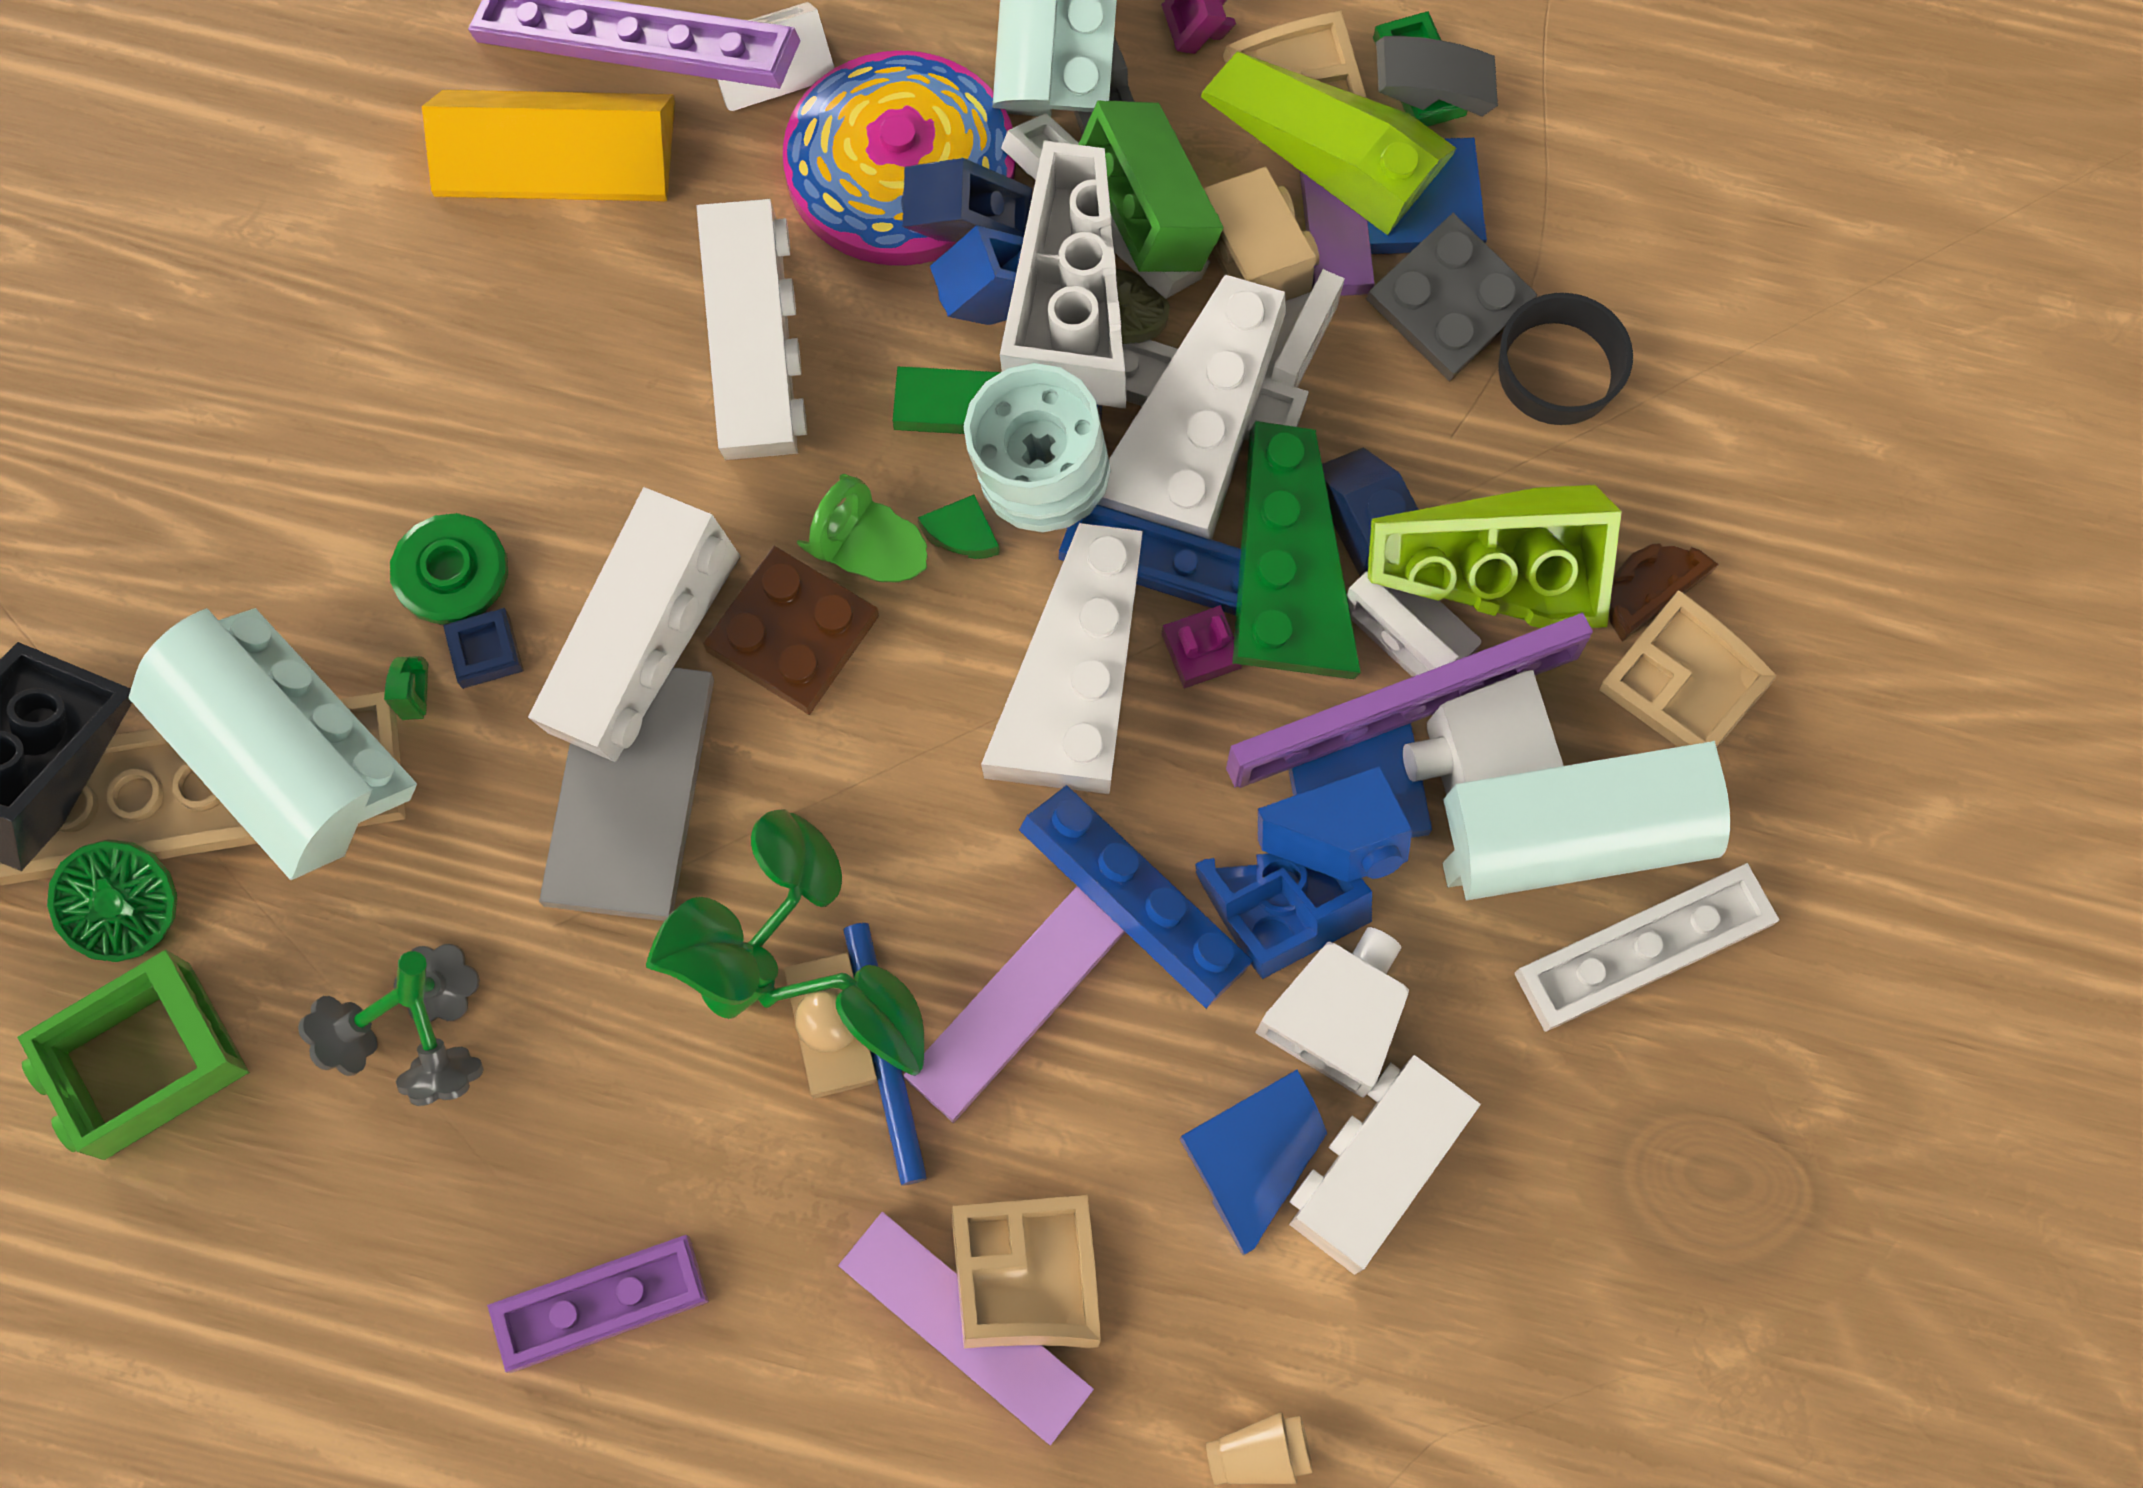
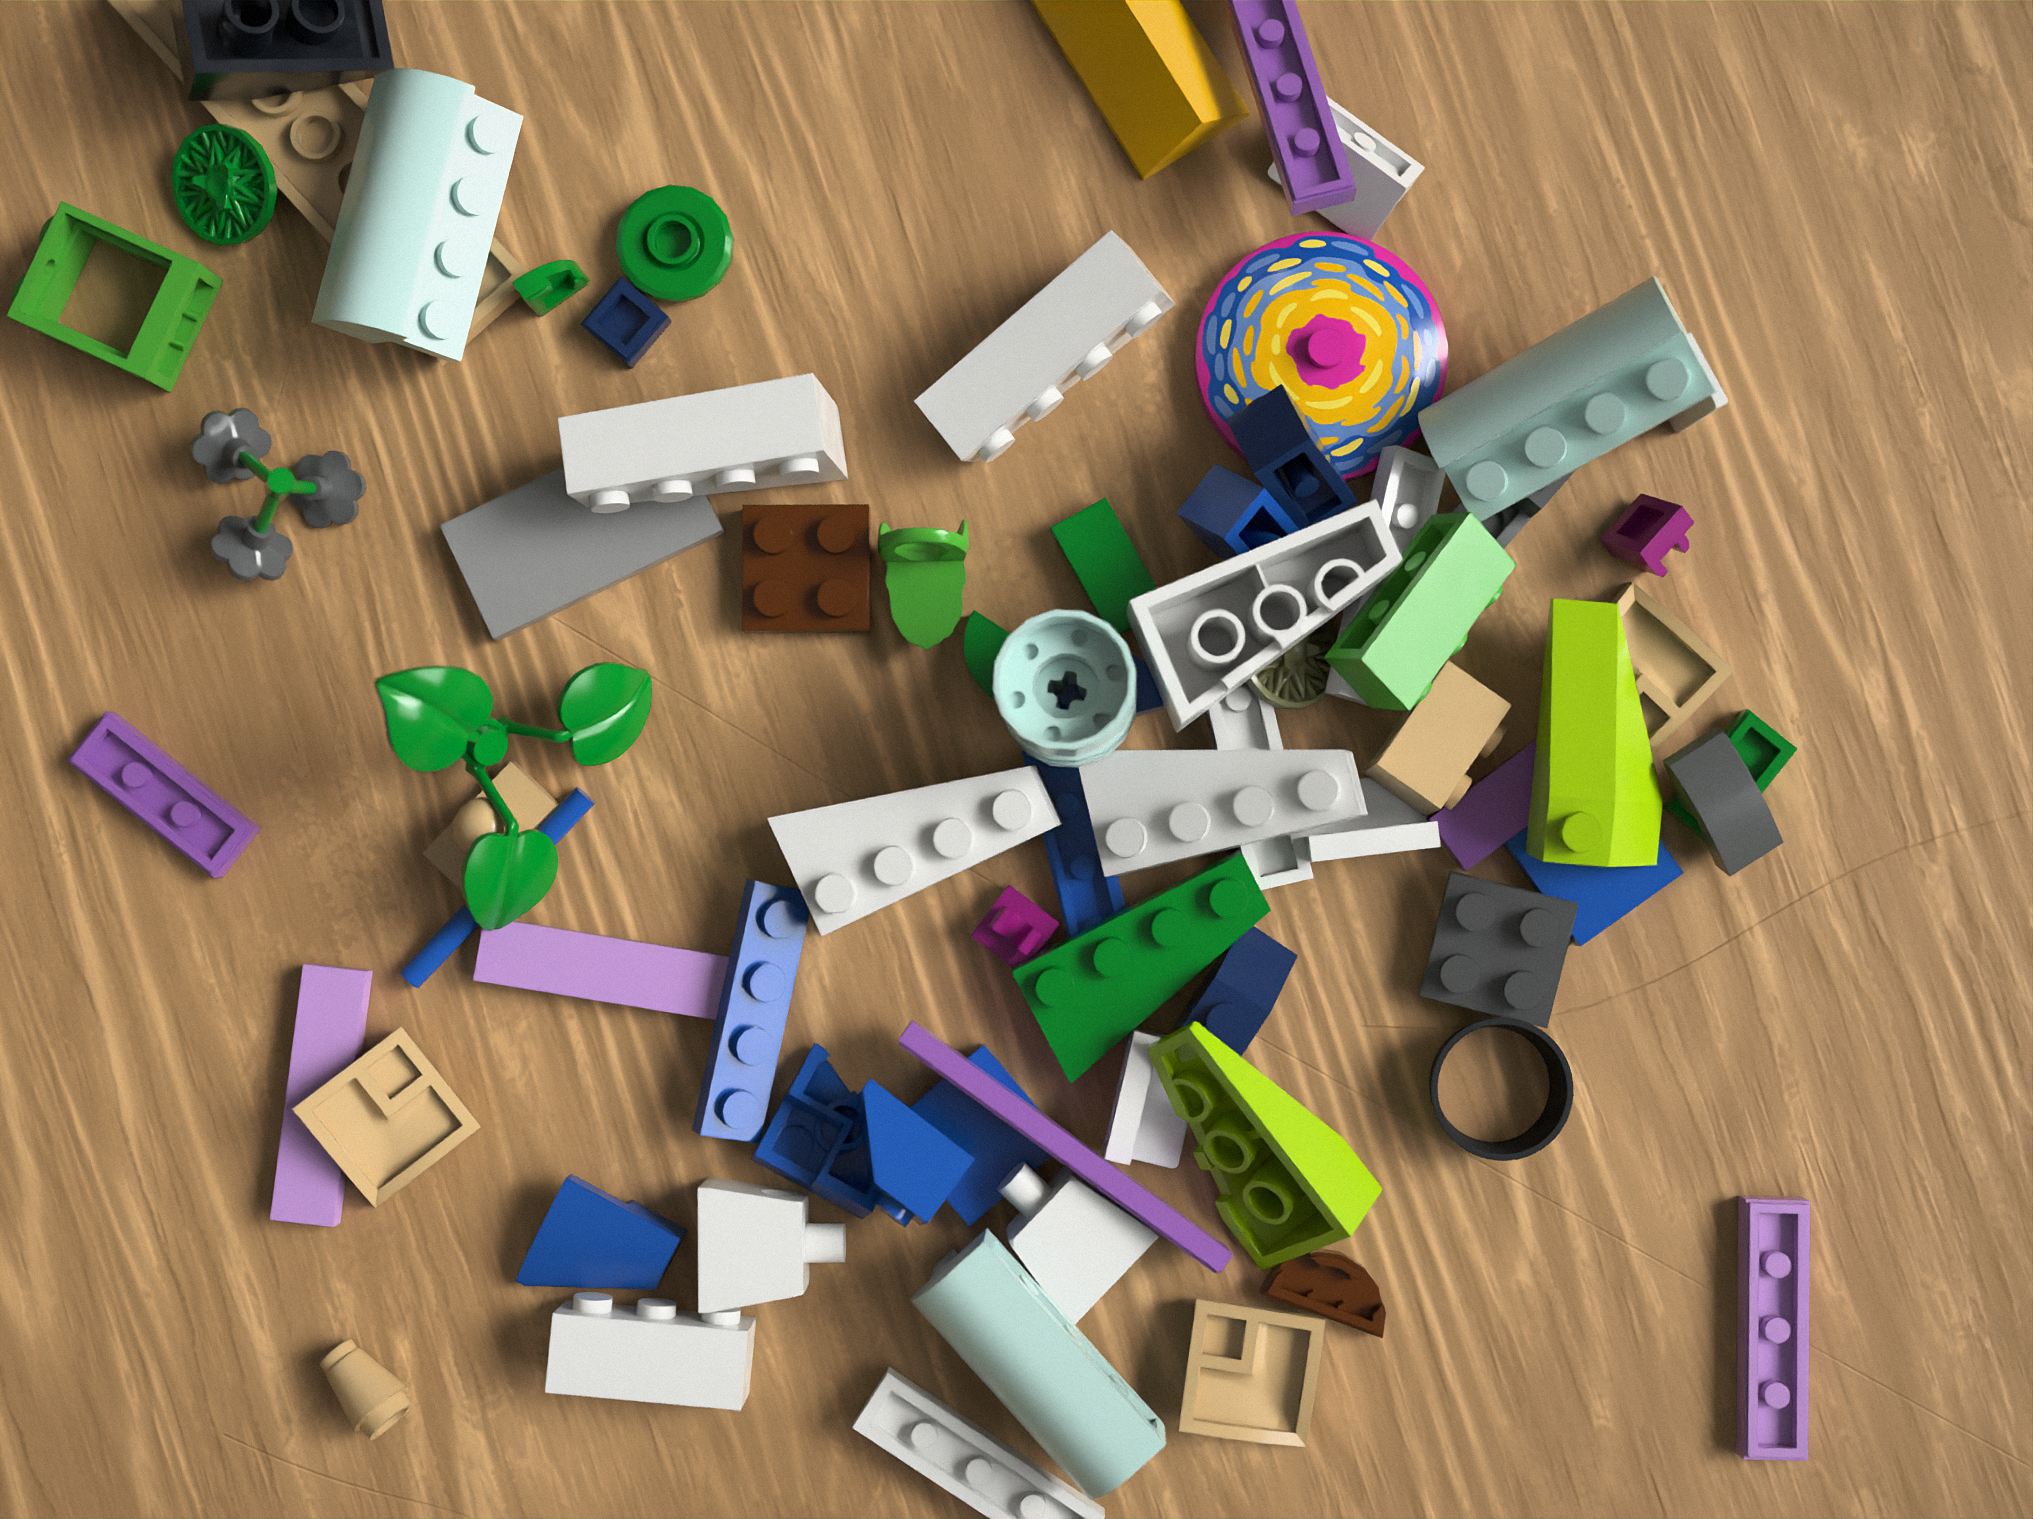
camera: 65 degrees right, 15 degrees up
(1874, 284) = (1773, 1328): none -> lavender tile

